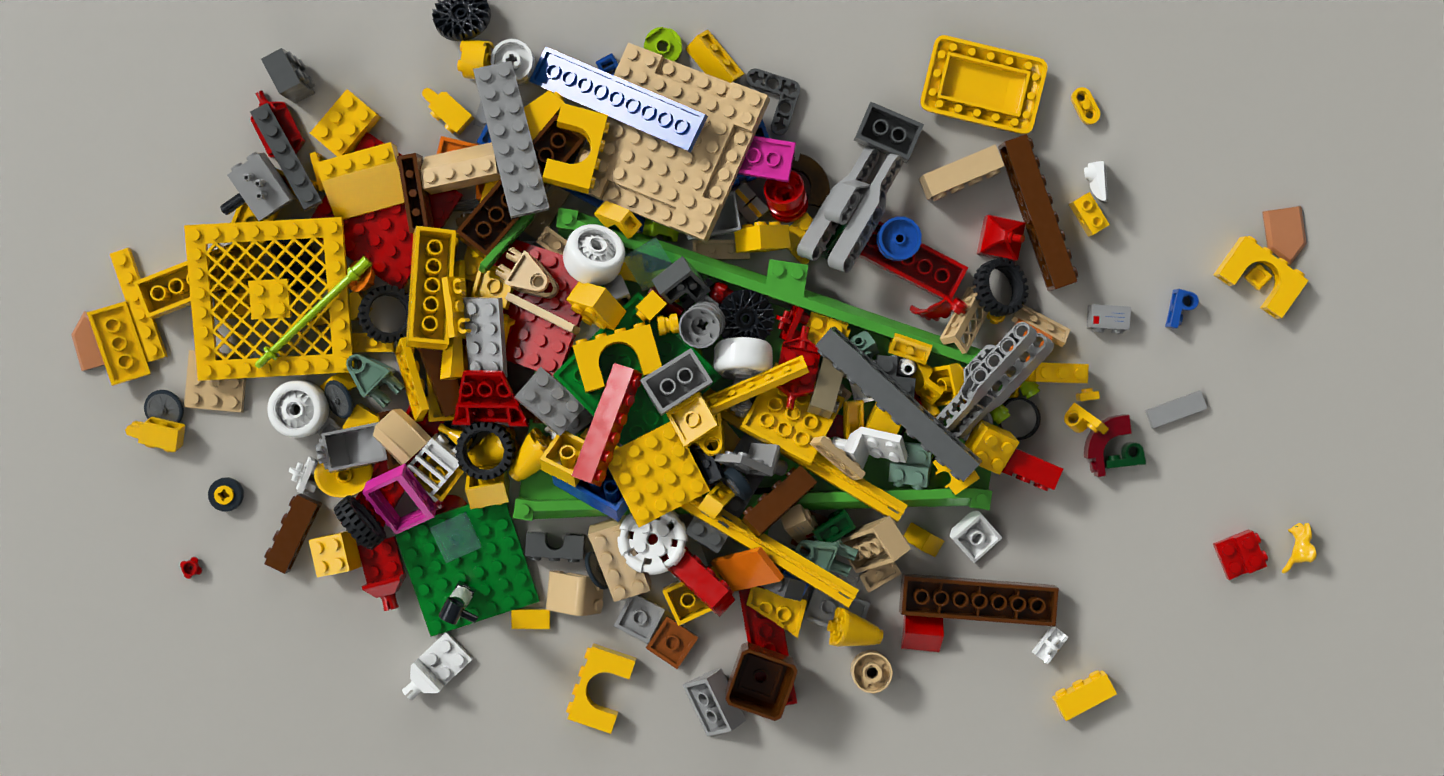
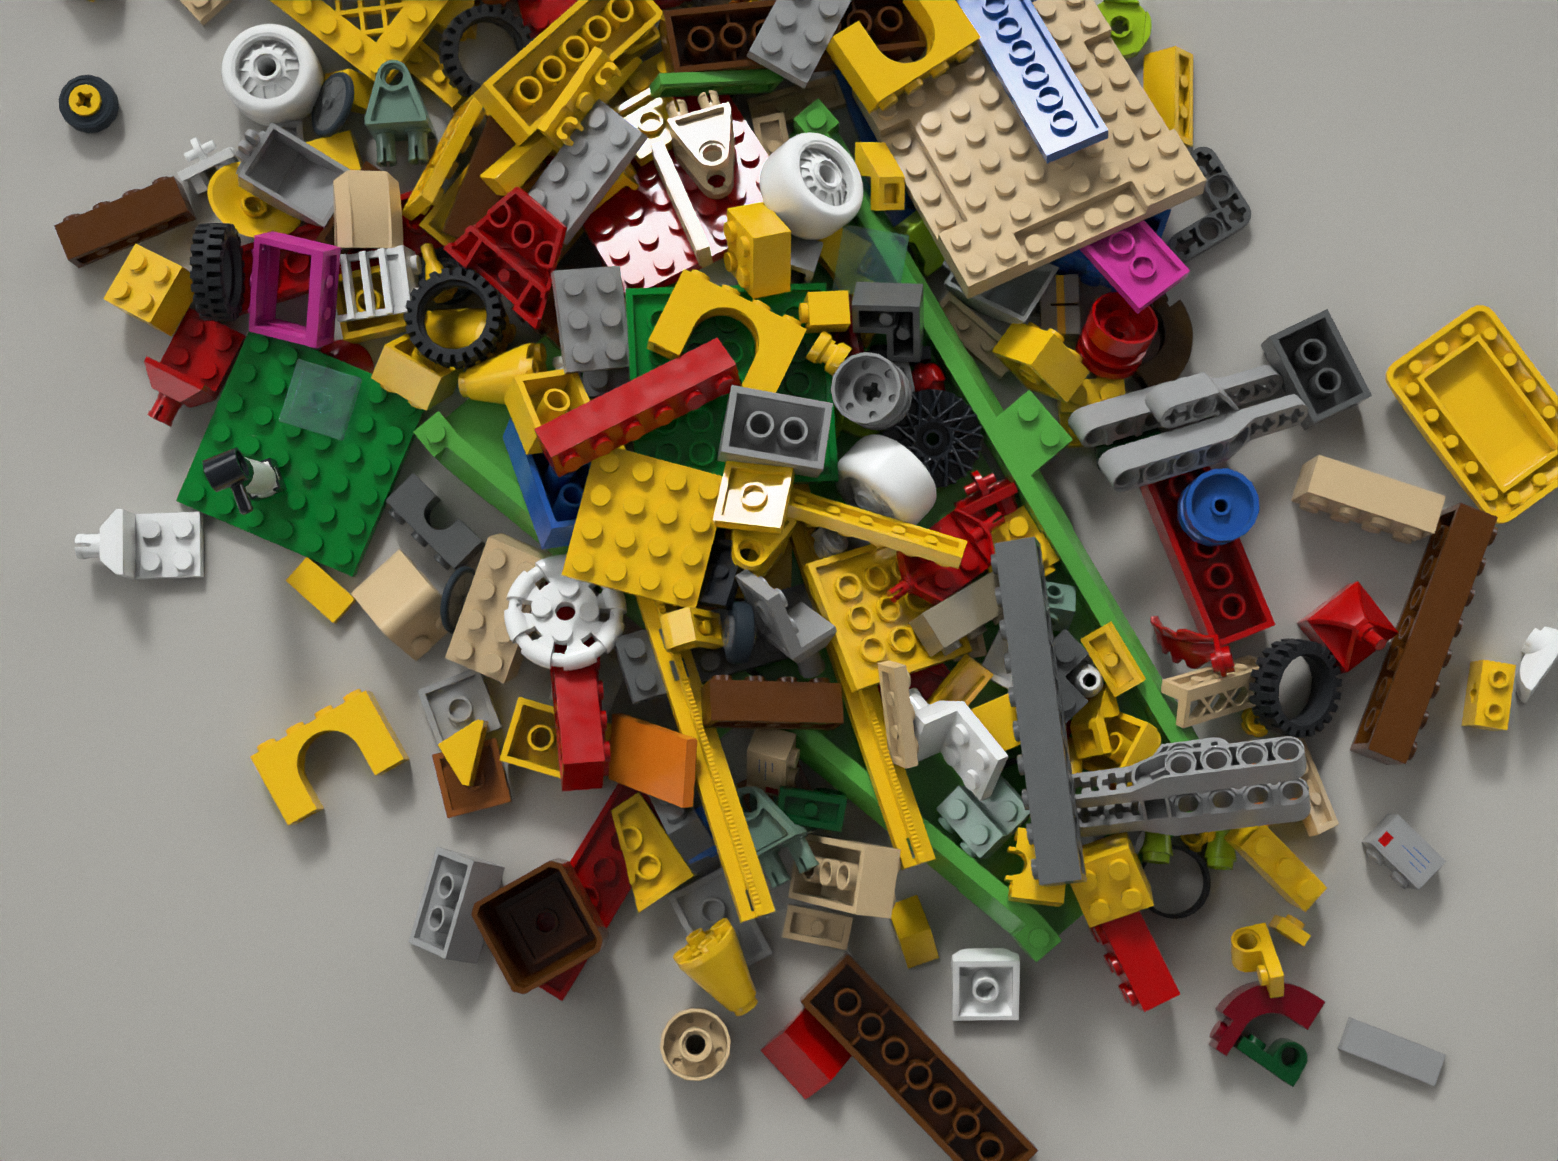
camera: 45 degrees right, 5 degrees down
(659, 634) = (464, 750): none -> yellow slope
(1177, 305) = (1508, 916): blue plate -> none

